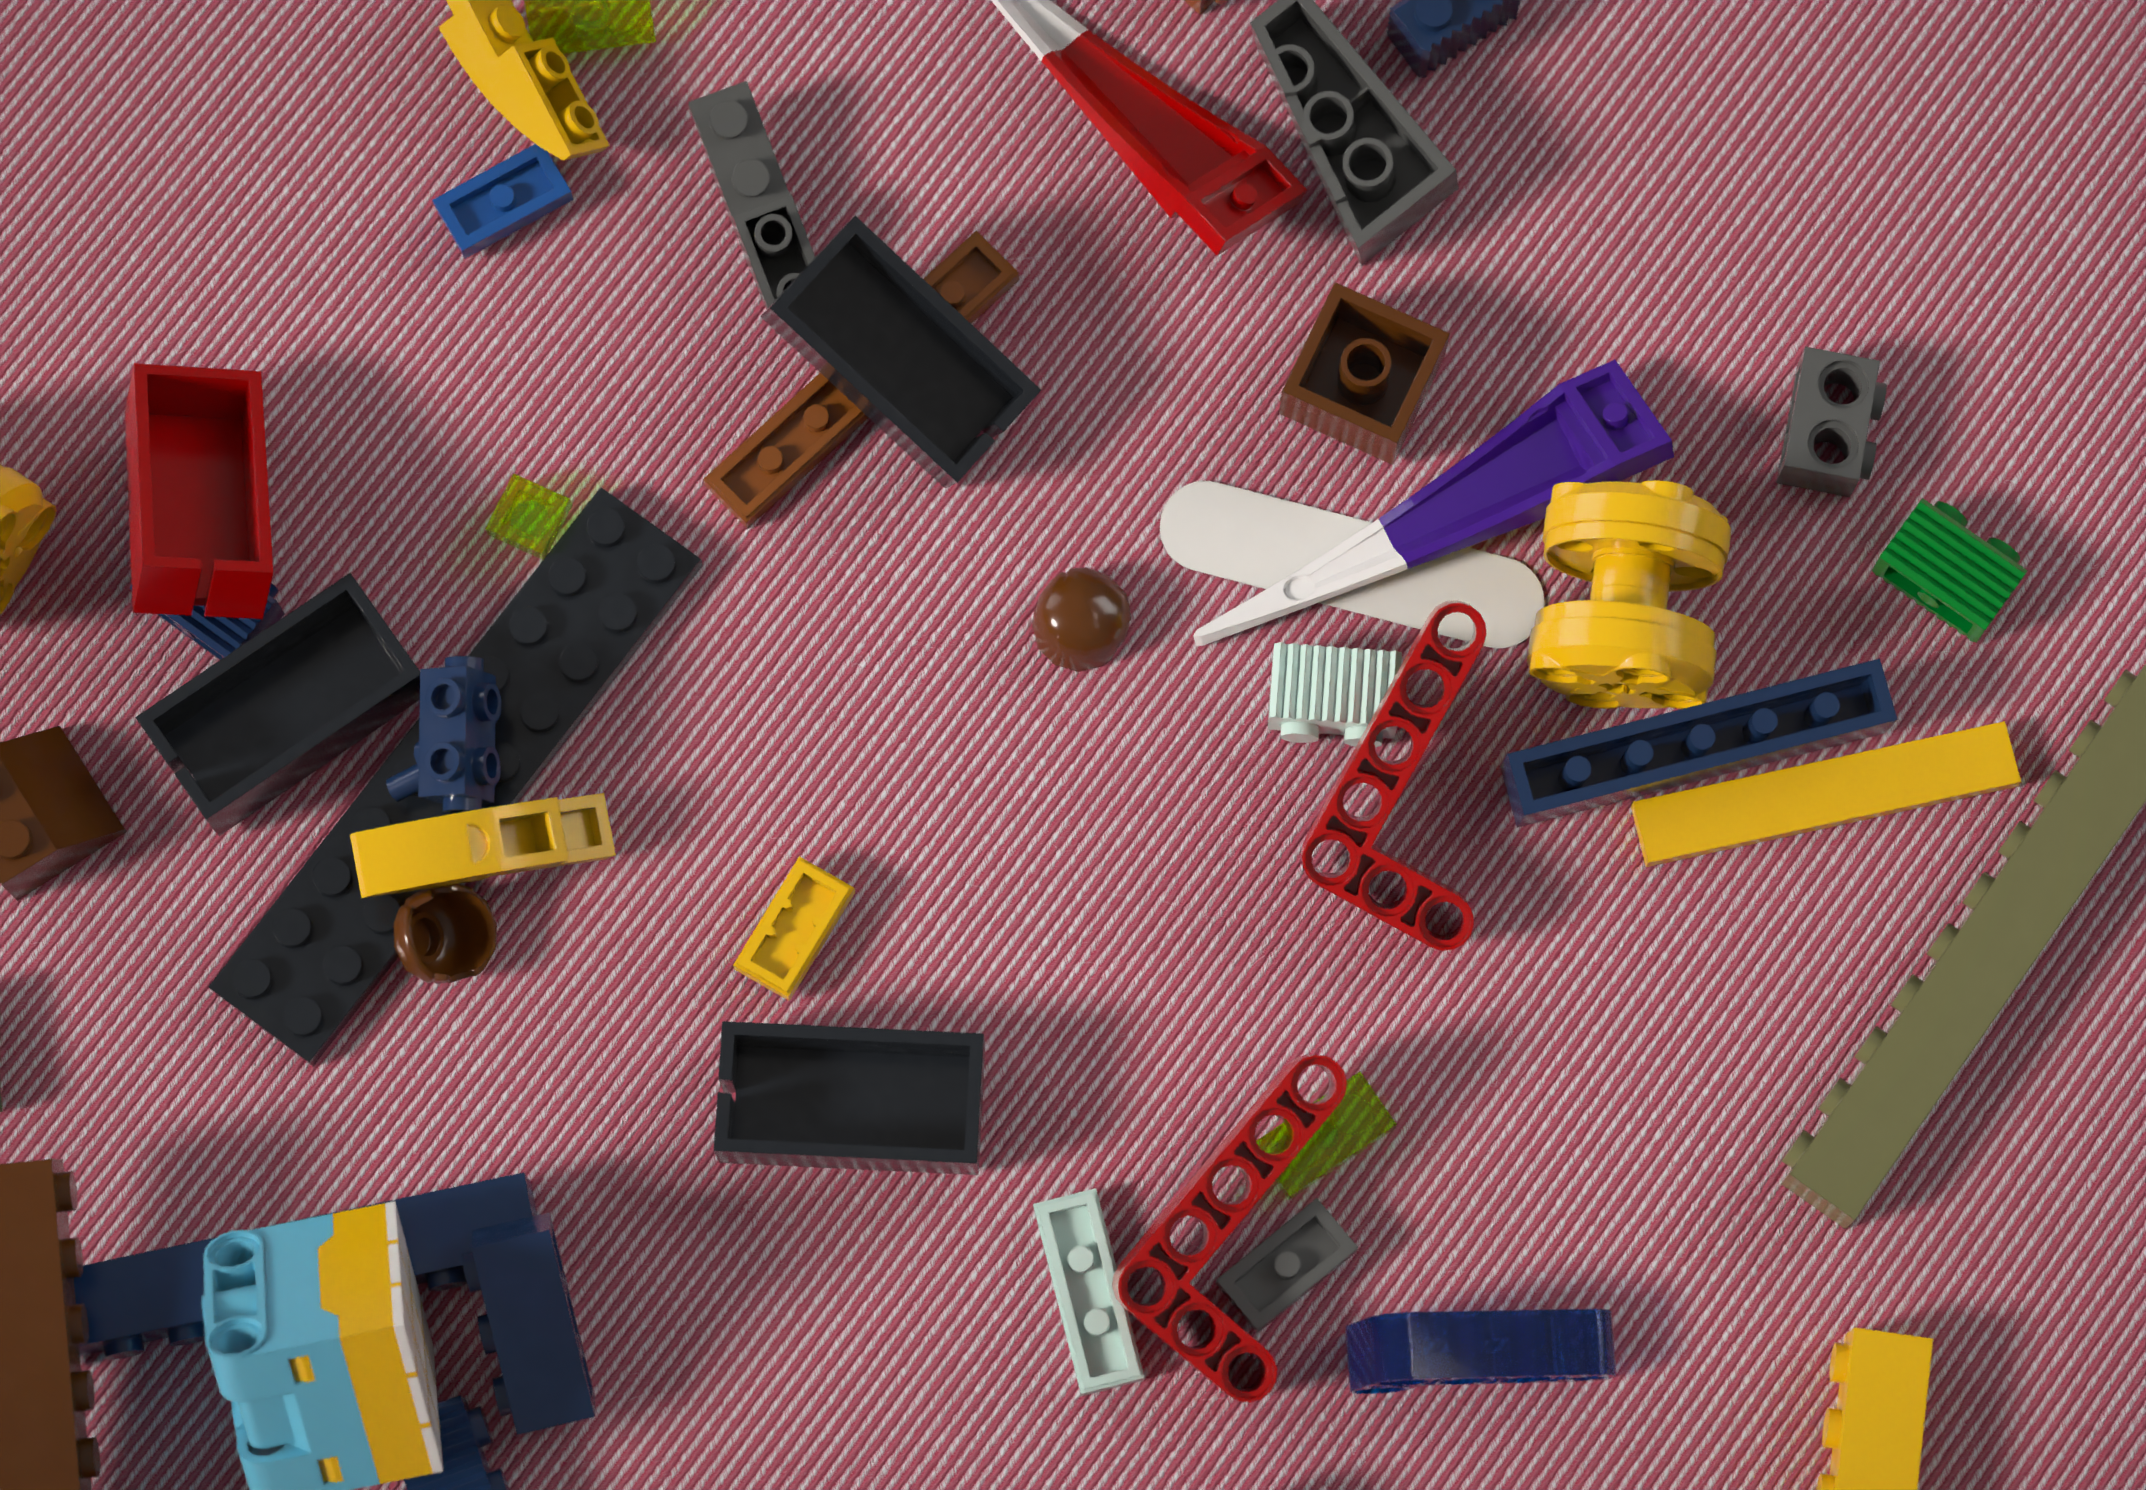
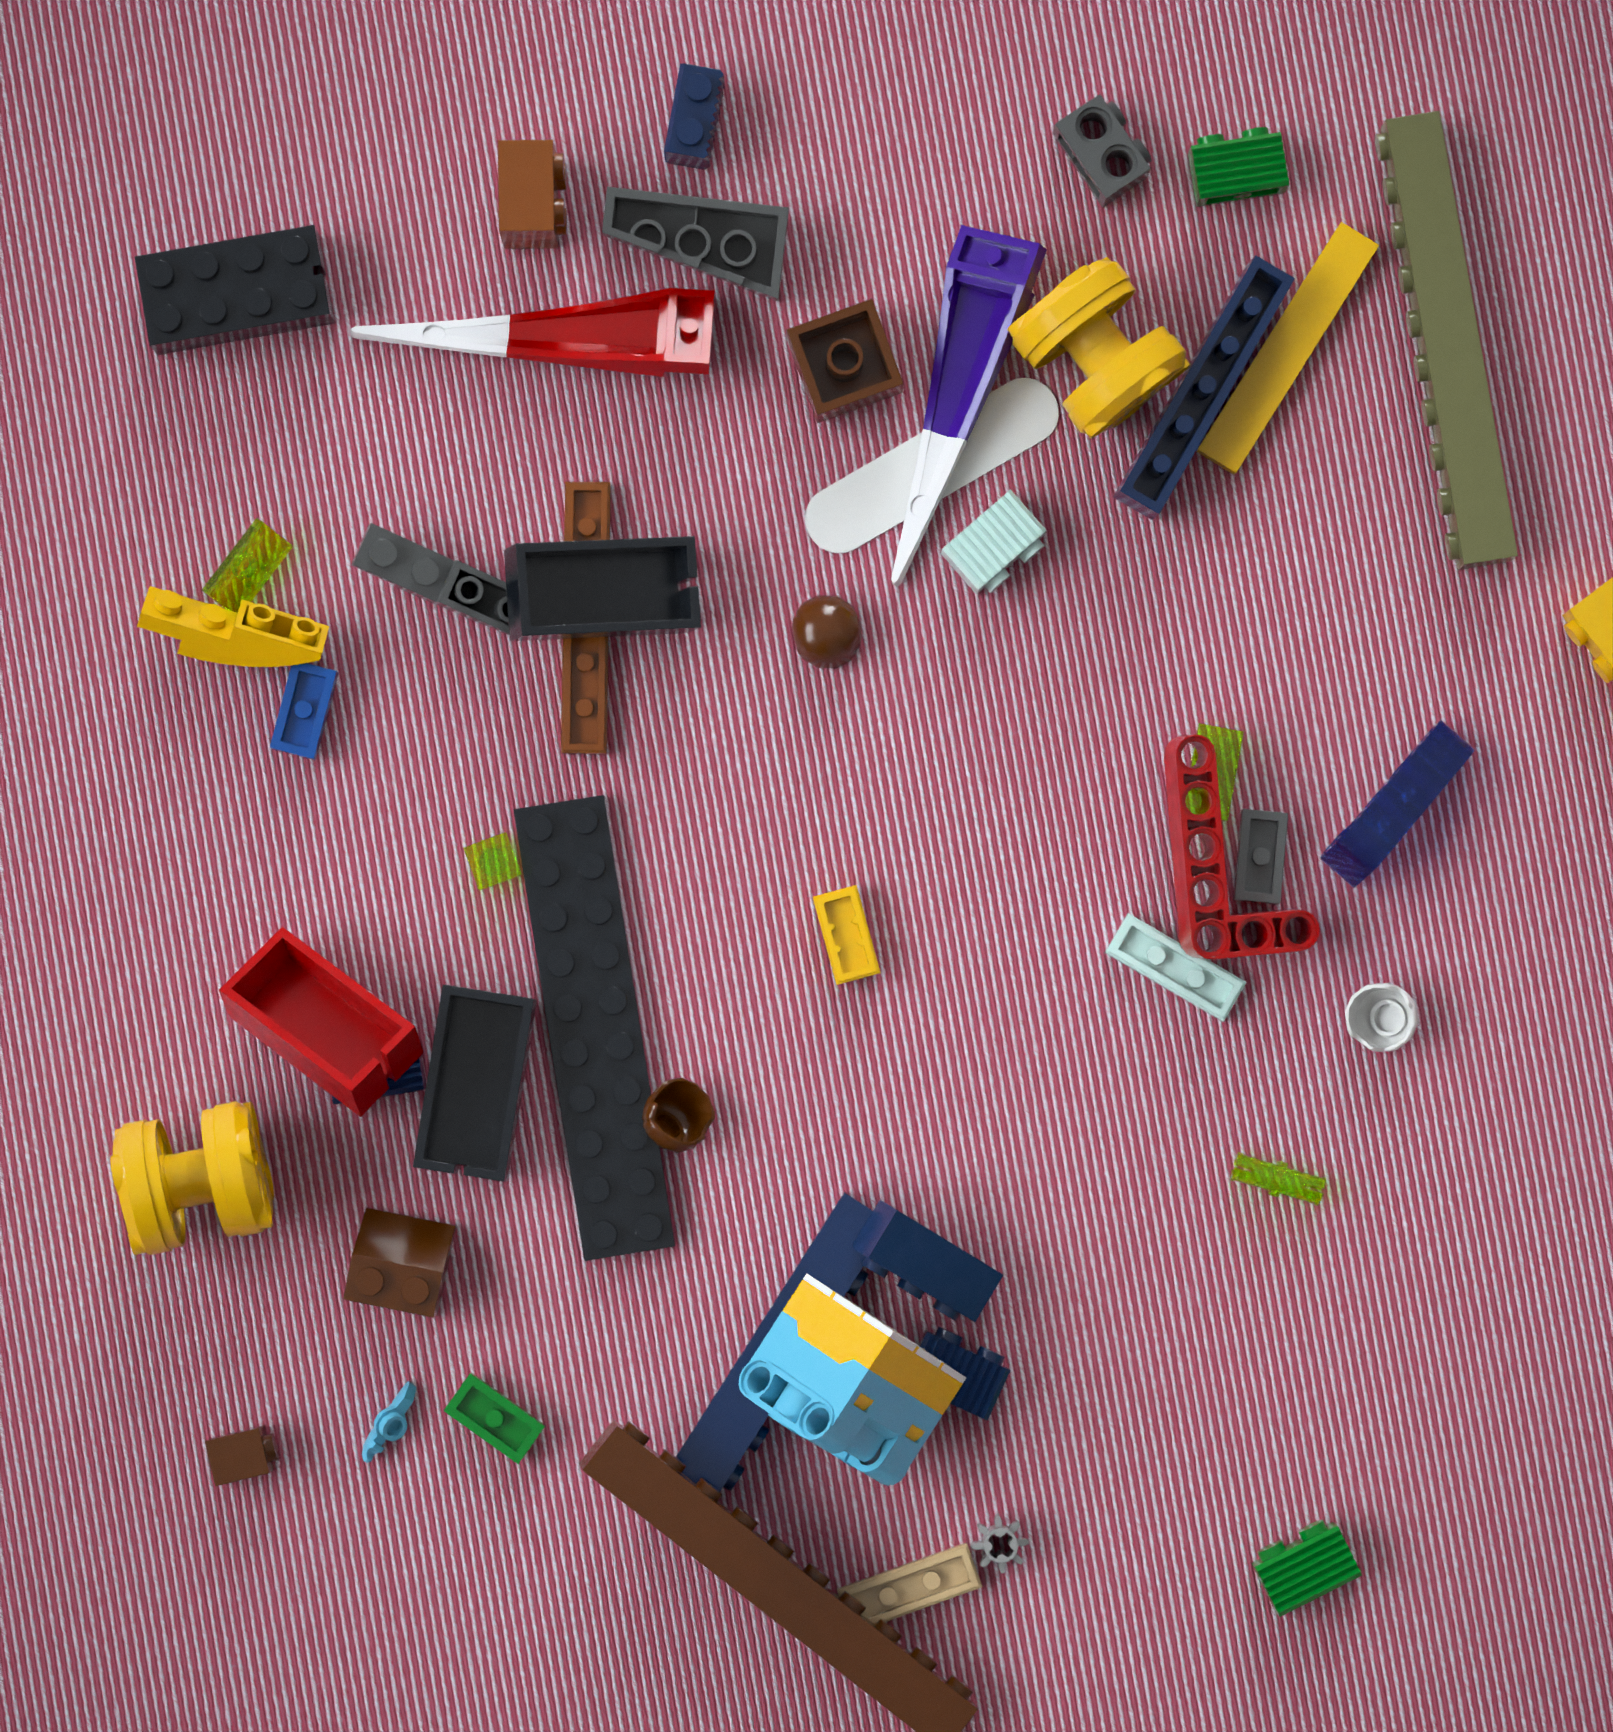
camera: 50 degrees left, 10 degrees up
(456, 738) = (587, 1015): dark blue brick -> none
(482, 844) = (653, 1053): yellow slope -> none
(850, 1098) = (967, 991): black piece -> none
(1390, 779) = (1074, 561): red beam -> none

